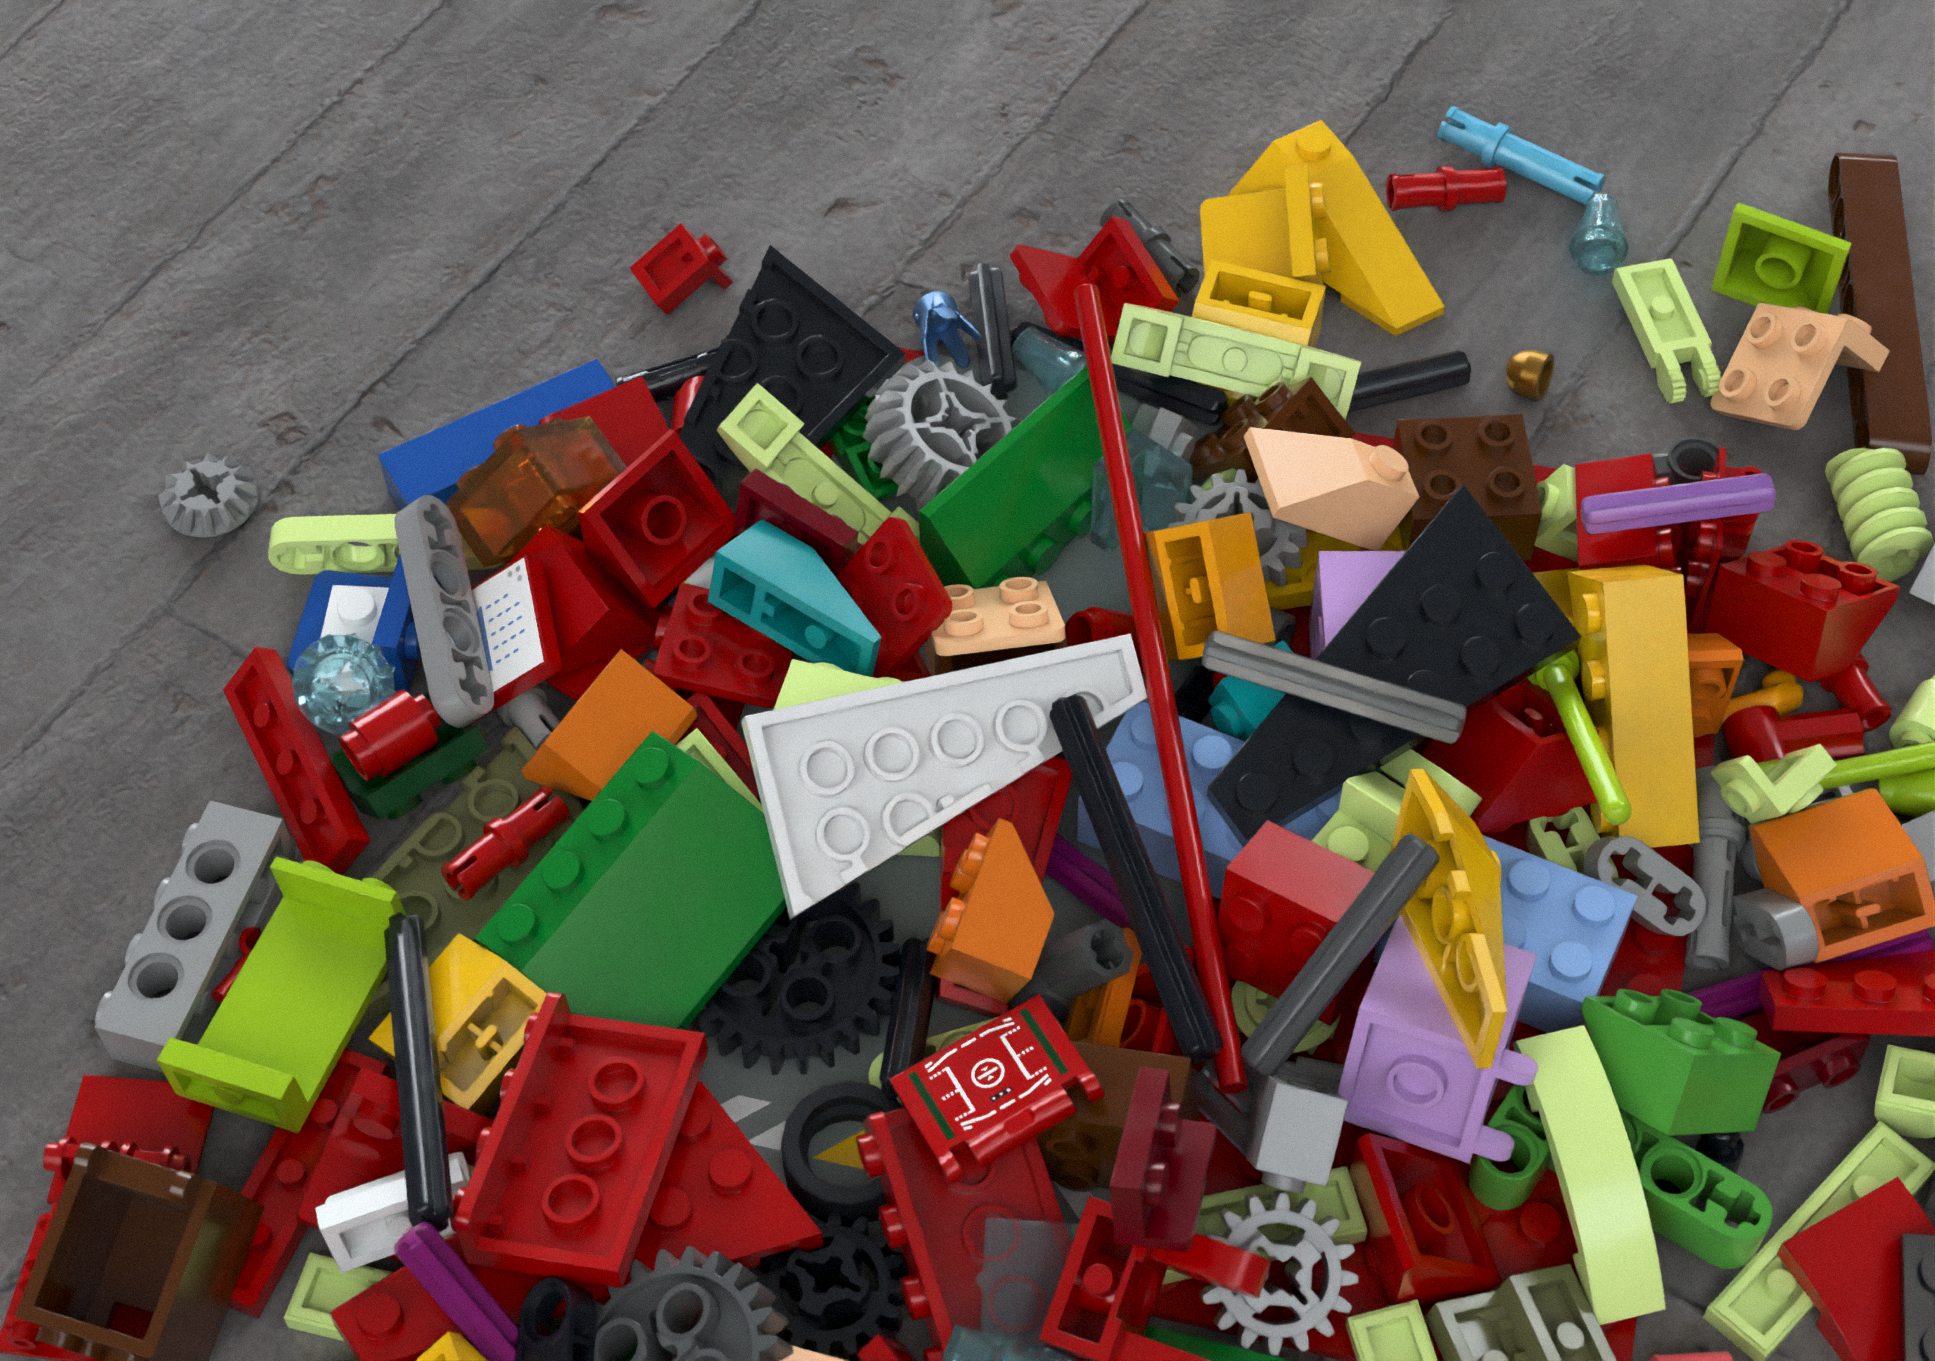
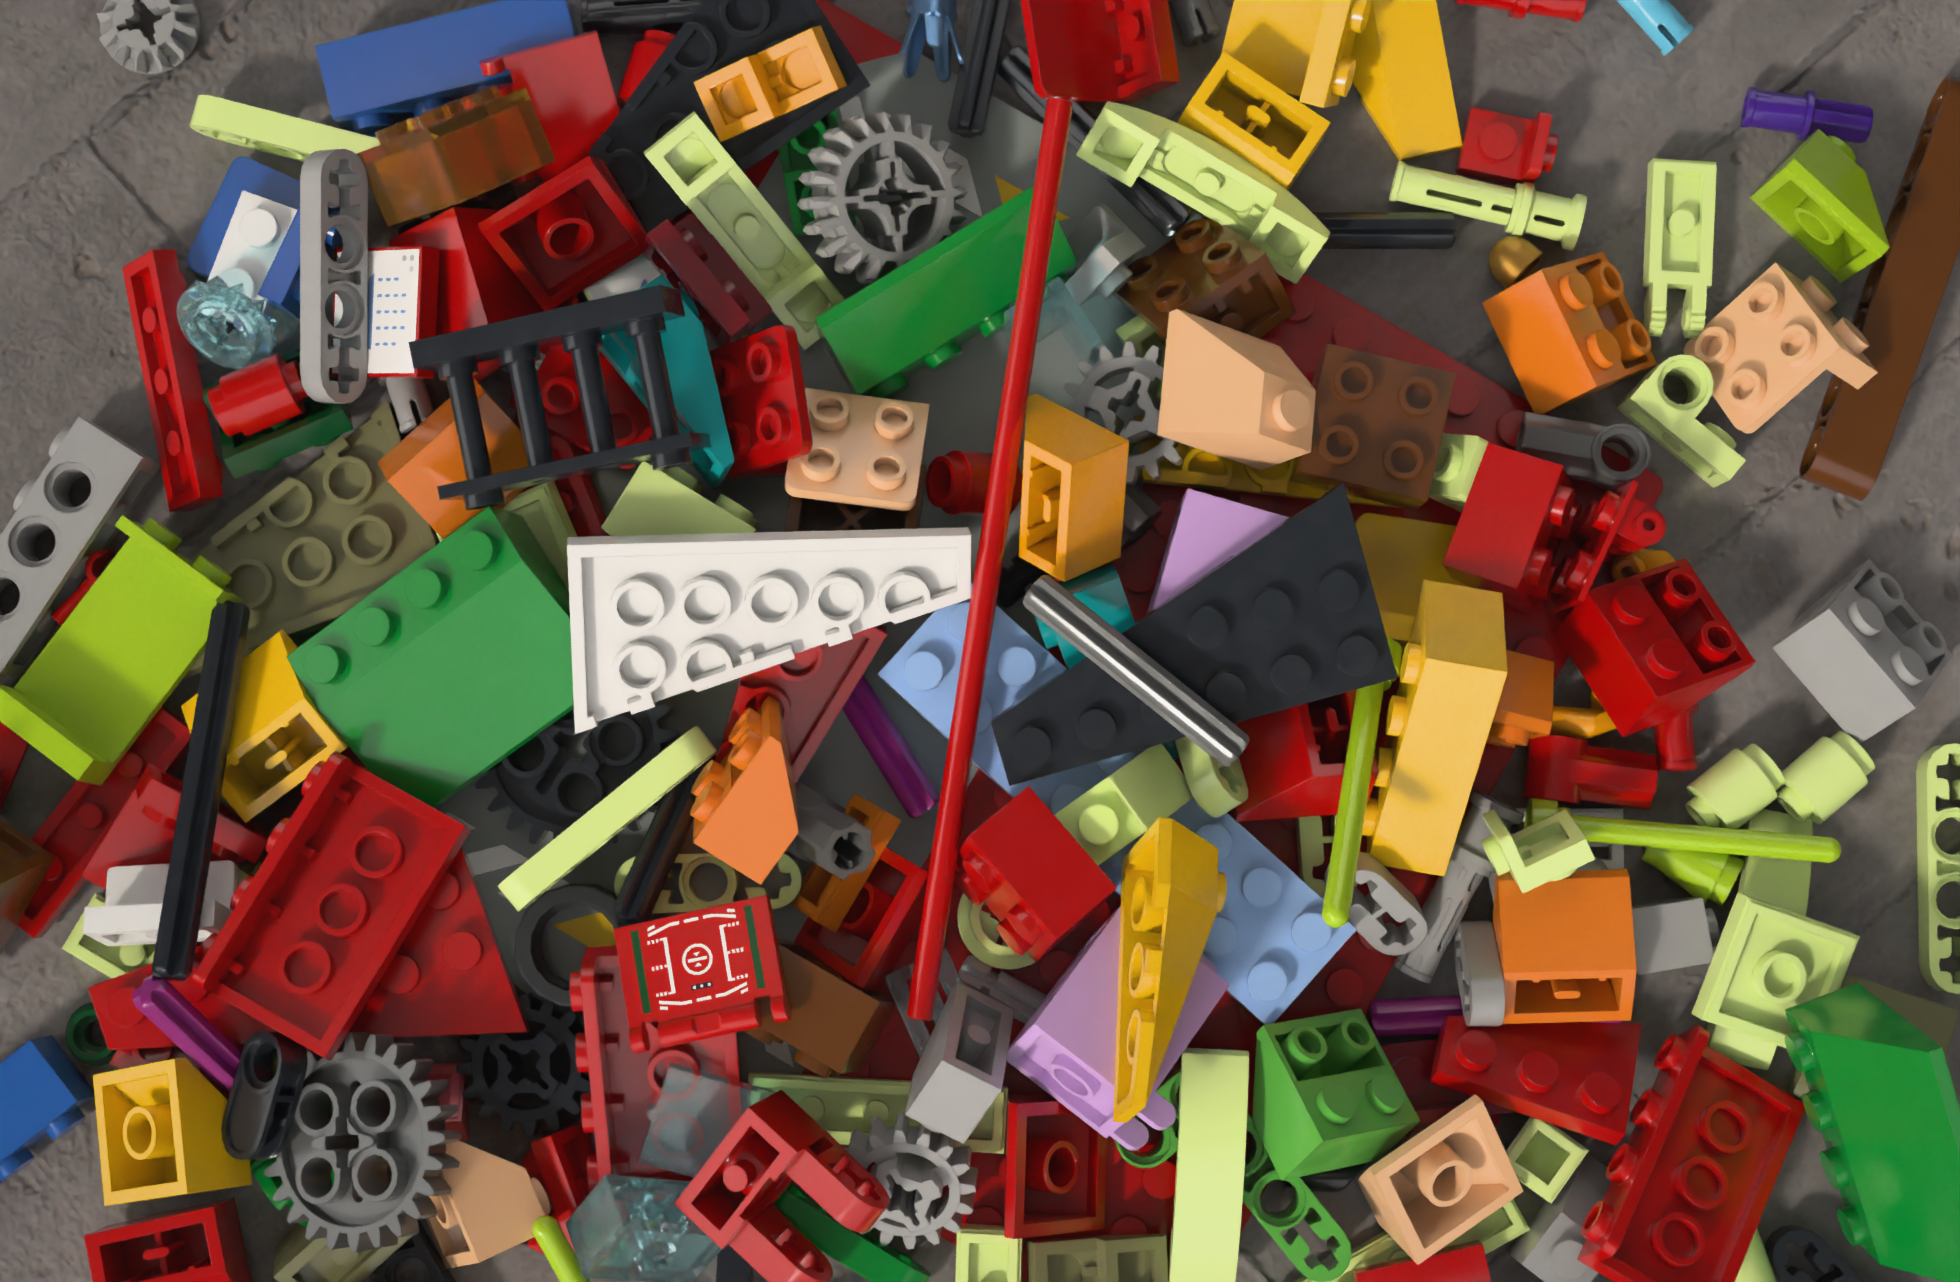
camera: 15 degrees right, 30 degrees up
(505, 842) = (342, 547): red pin -> none
(669, 564) = (580, 332): none -> black fence
(819, 364) = (770, 83): none -> light orange slope
(845, 1003) = (607, 818): none -> yellowish green beam
(1047, 358) = (1022, 118): clear light blue cone -> none
(1136, 880) = (891, 794): black axle -> none
(1159, 1168) = (808, 1125): dark red bracket -> none
(1340, 954) = (1042, 956): dark grey axle -> none
(1485, 297) = (1506, 147): none -> red bracket
(1516, 332) = (1518, 209): none -> yellowish green pin
(1599, 239) = (1657, 105): clear light blue cone -> none
(1601, 405) = (1569, 332): none -> orange slope
(1677, 503) = (1558, 545): medium lavender axle -> none
(1714, 215) = (1806, 115): none -> dark purple axle
(1725, 418) = (1700, 447): none -> yellowish green plate
(1821, 1116) = (1441, 1181): none -> light nougat slope
(1879, 510) = (1788, 541): yellowish green piece -> none

